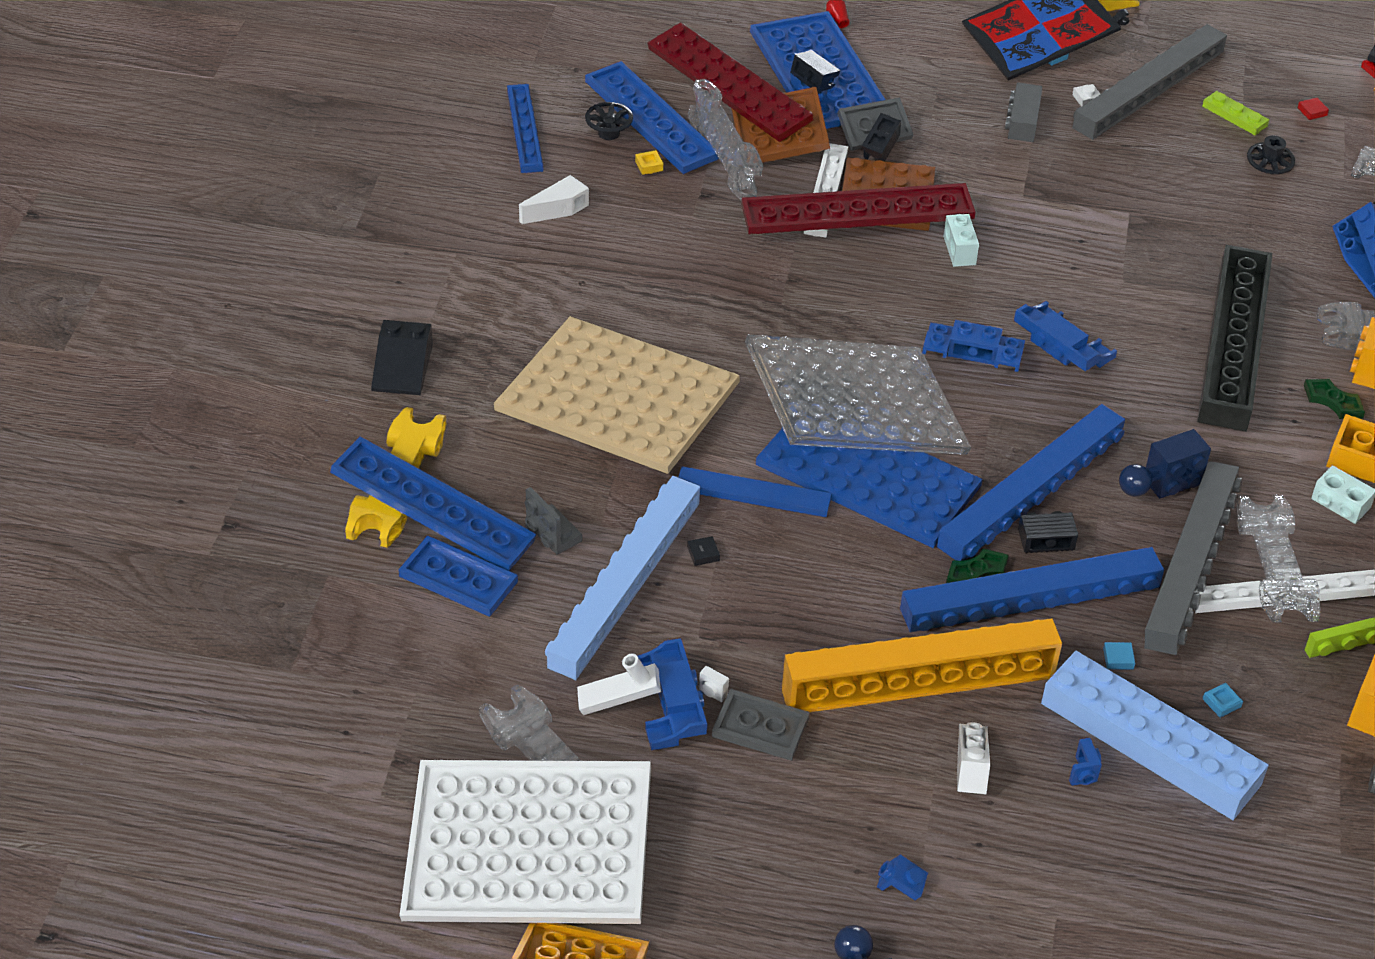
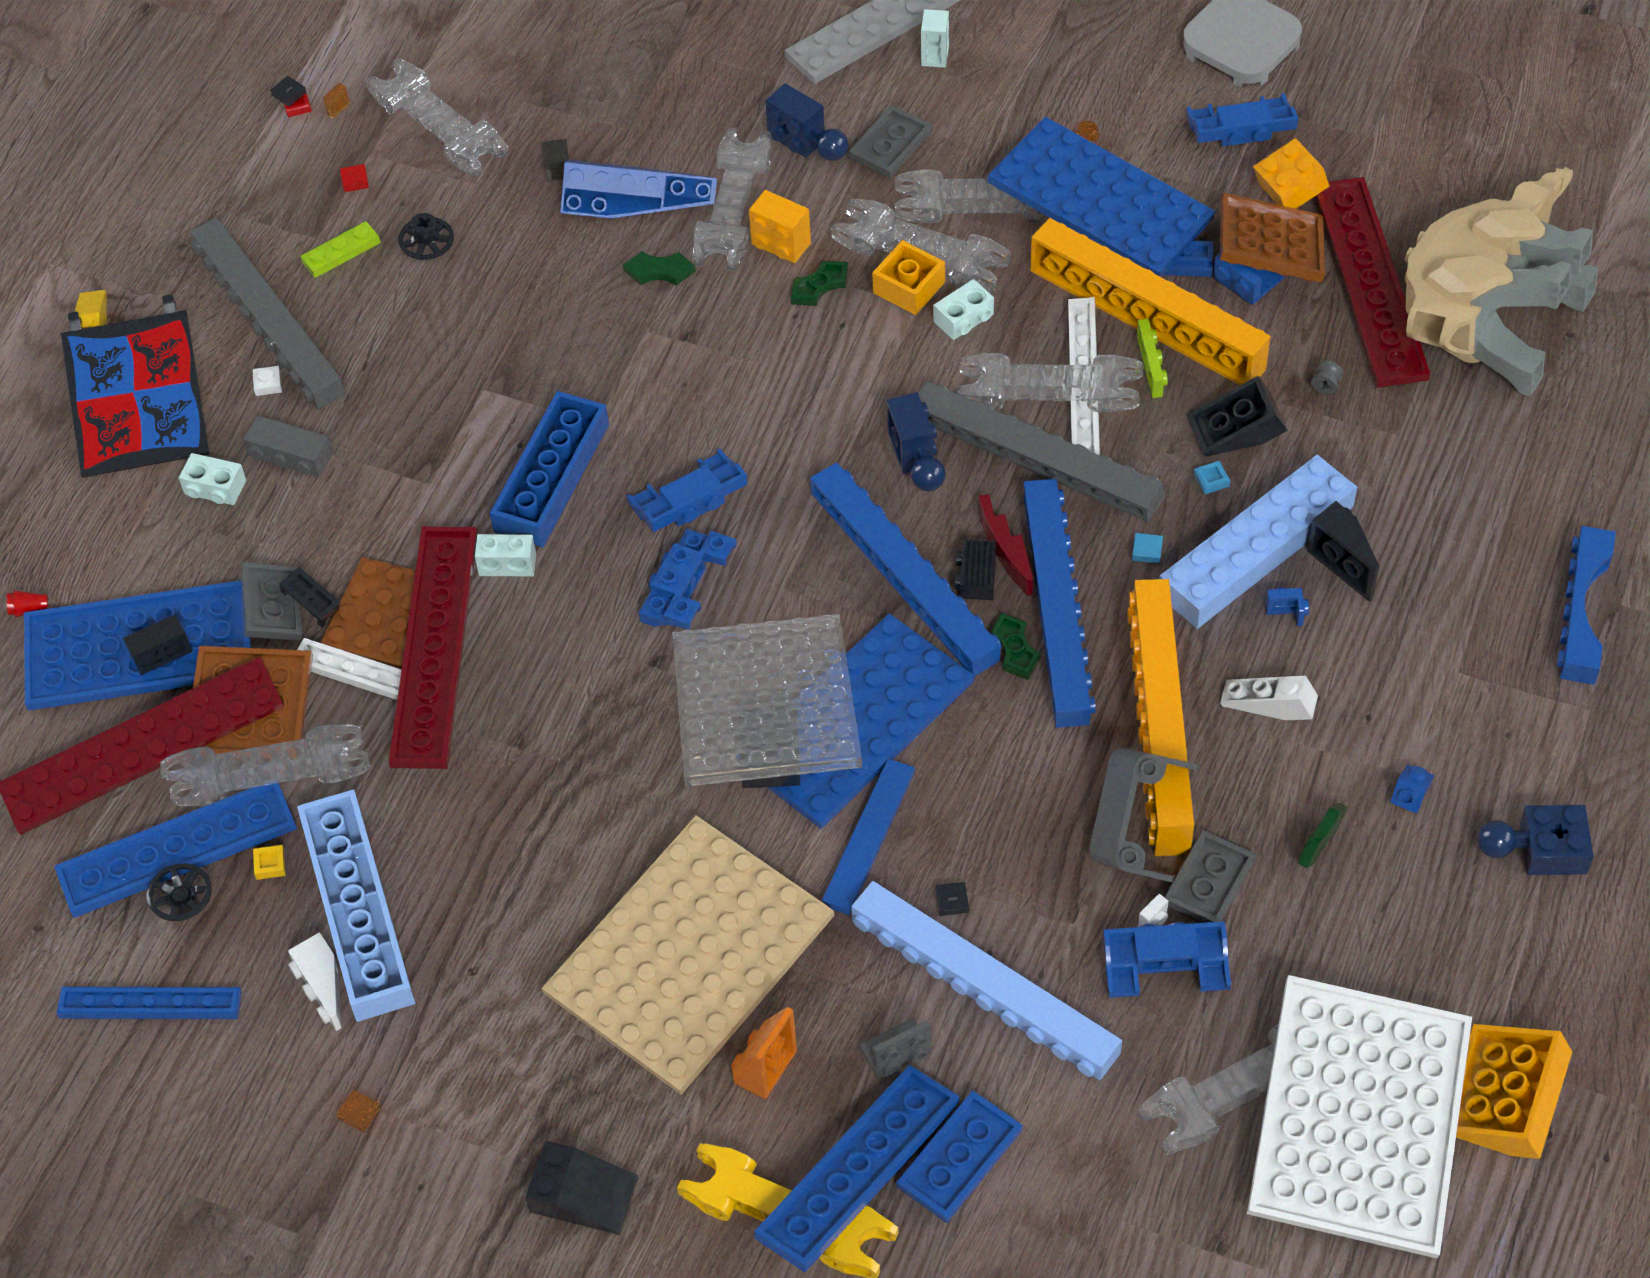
camera: 75 degrees left, 10 degrees up
(453, 239) = (358, 1111): none -> clear orange tile
(524, 437) = (767, 1054): none -> orange slope
(617, 205) = (355, 906): none -> light blue brick
(625, 687) = (1158, 1004): white piece -> none
(833, 804) = (1322, 835): none -> dark green tile
(834, 628) = (1108, 840): none -> dark grey windscreen
(978, 79) = (212, 479): none -> light aqua brick
(1055, 250) = (550, 468): none -> blue brick
(1088, 543) = (1009, 549): none -> dark red slope
(1163, 797) = (1344, 549): none -> black slope
(1235, 338) = (724, 337): pearl dark grey brick -> none
(1299, 712) = (1238, 419): none -> black slope
(1300, 290) = (650, 268): none -> dark green tile

